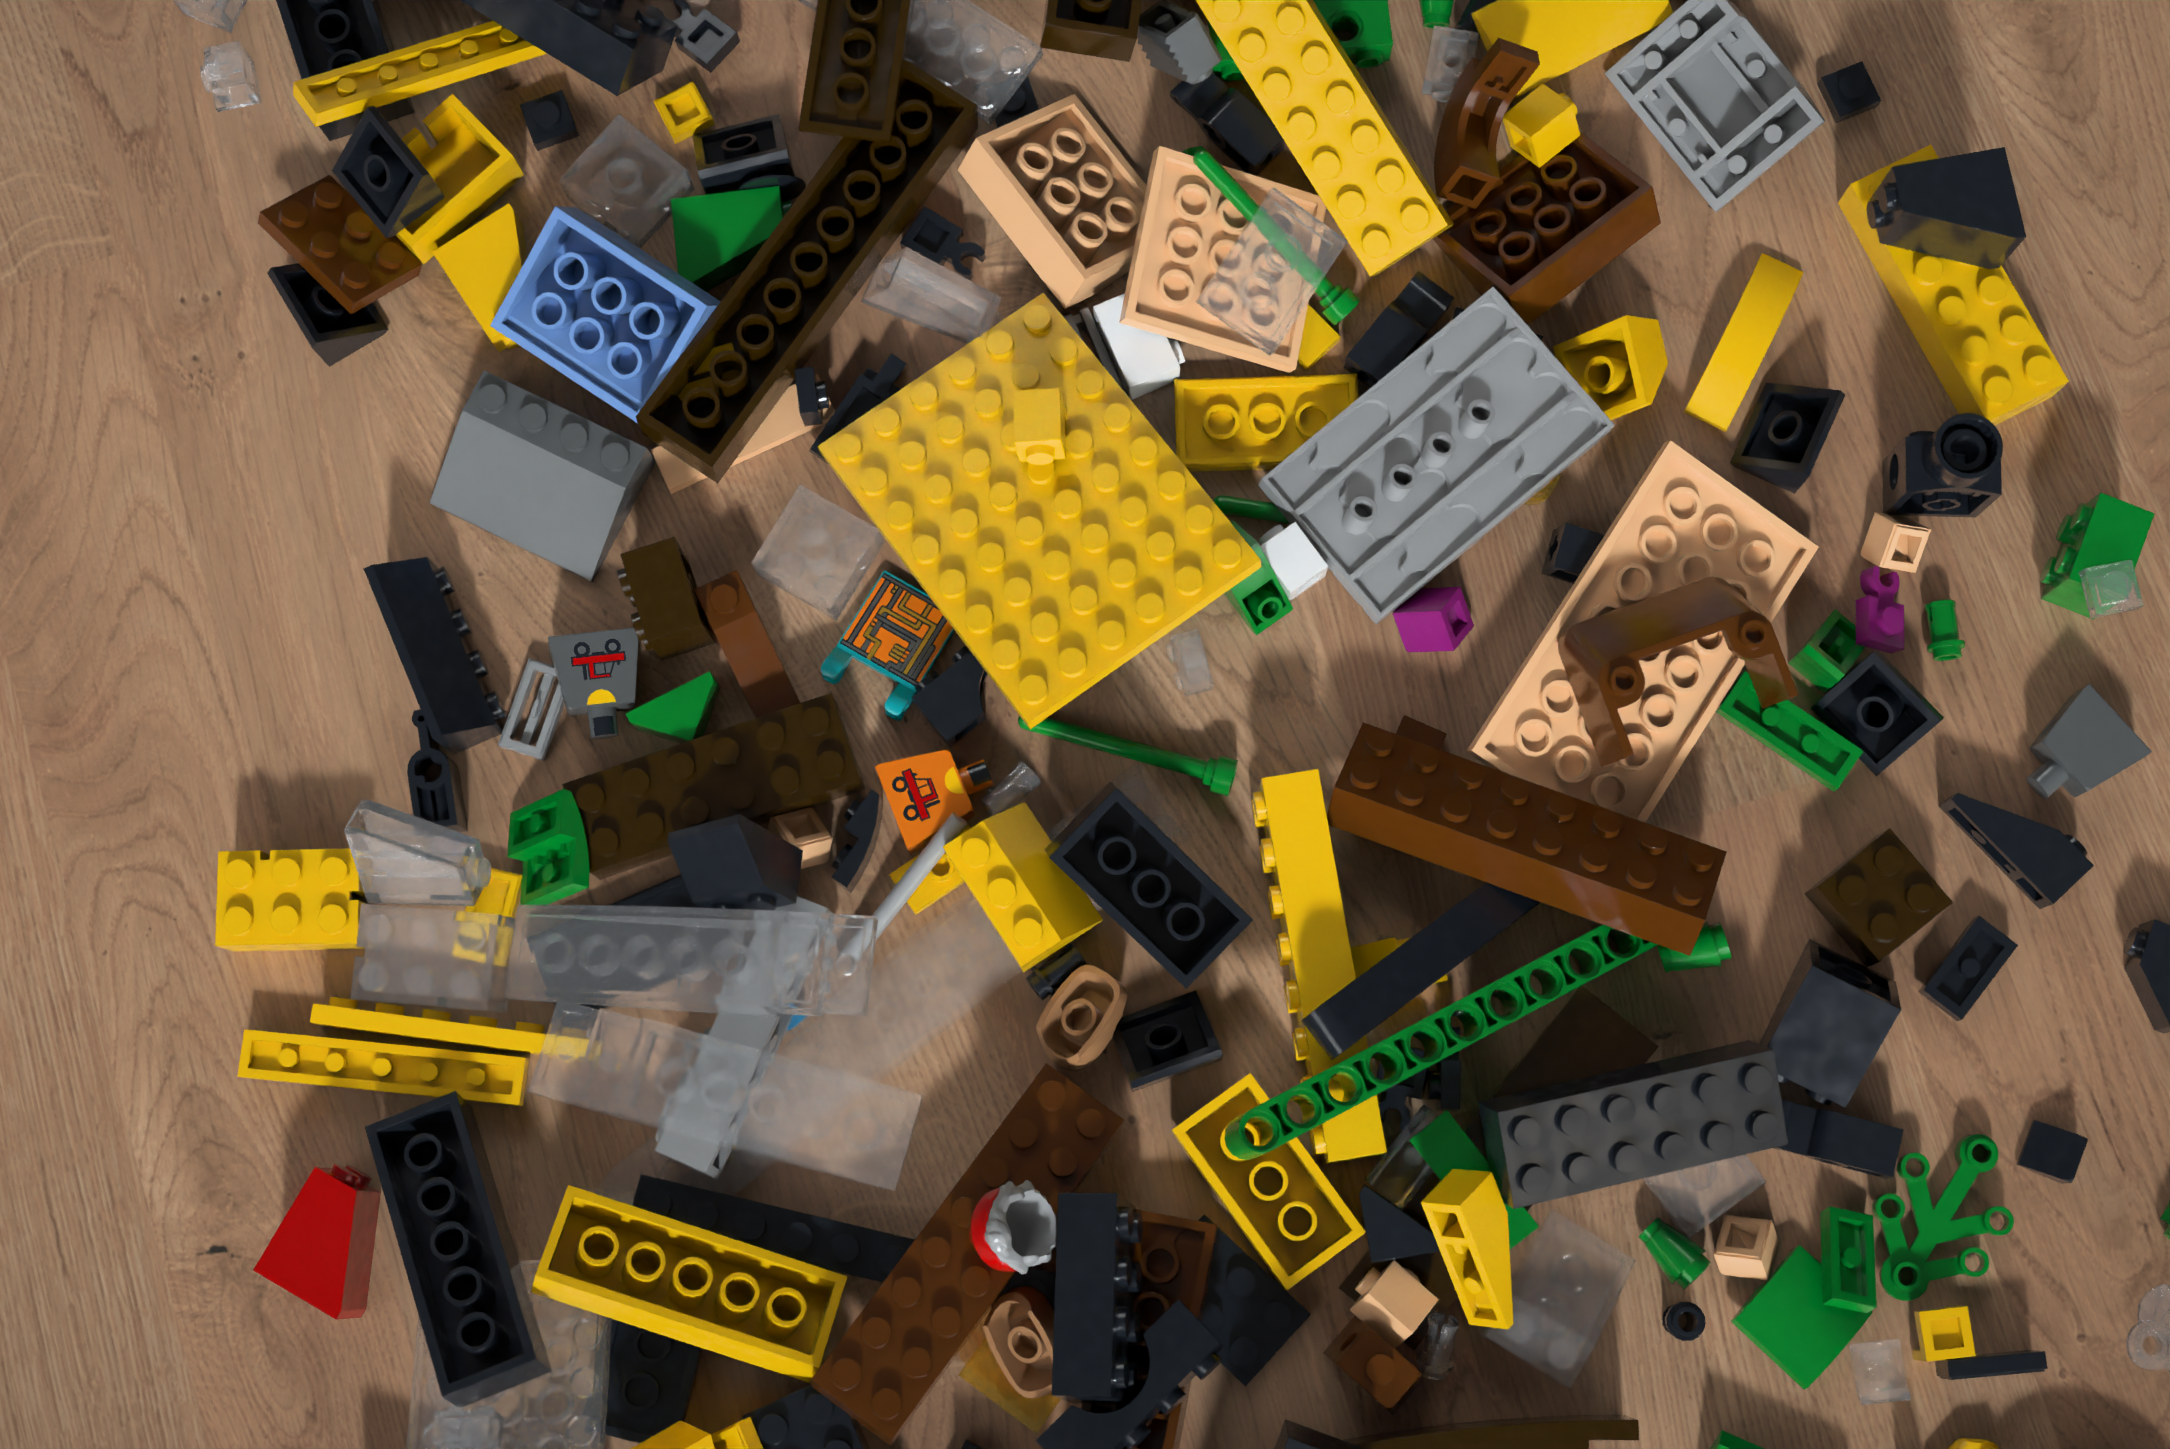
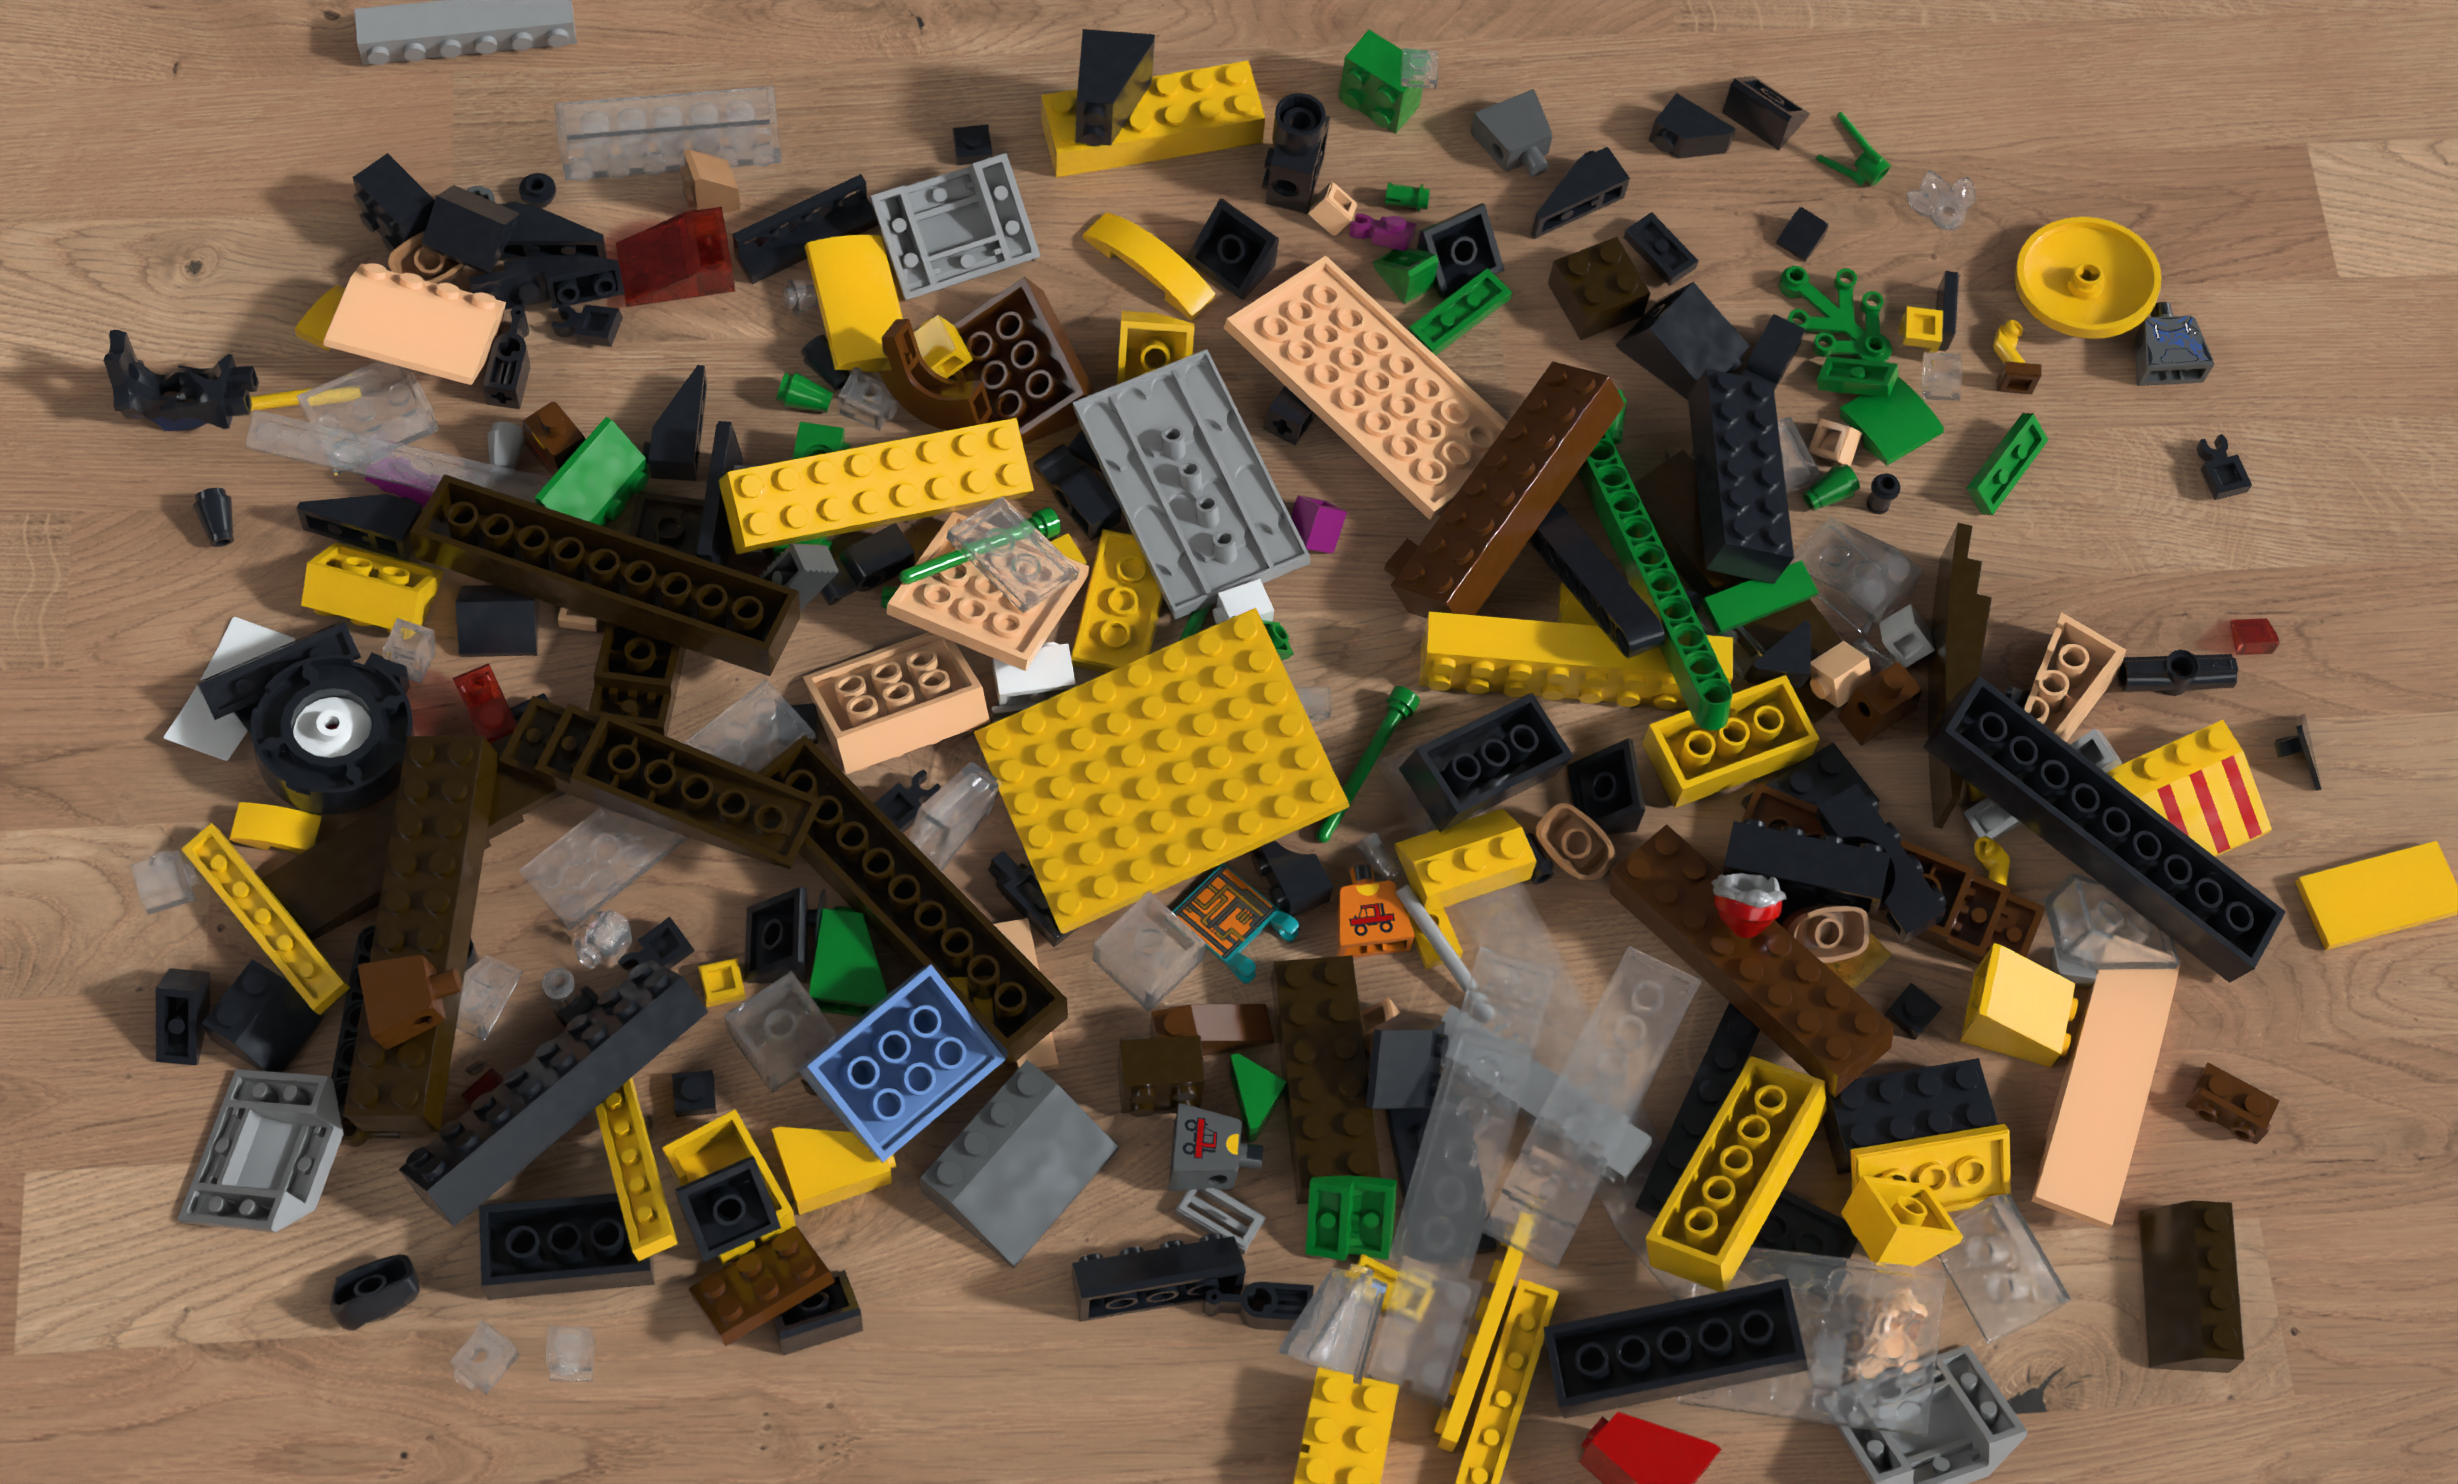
camera: 90 degrees left, 15 degrees down
(811, 396) = (1016, 925): black plate -> none
(864, 825) = (1385, 971): black slope -> none
(1039, 425) = (1101, 741): yellow brick -> none
(1474, 1243) = (1811, 598): yellow slope -> none
(1484, 1385) = (1906, 636): none -> white panel
(1606, 650) = (1379, 388): reddish brown windscreen -> none

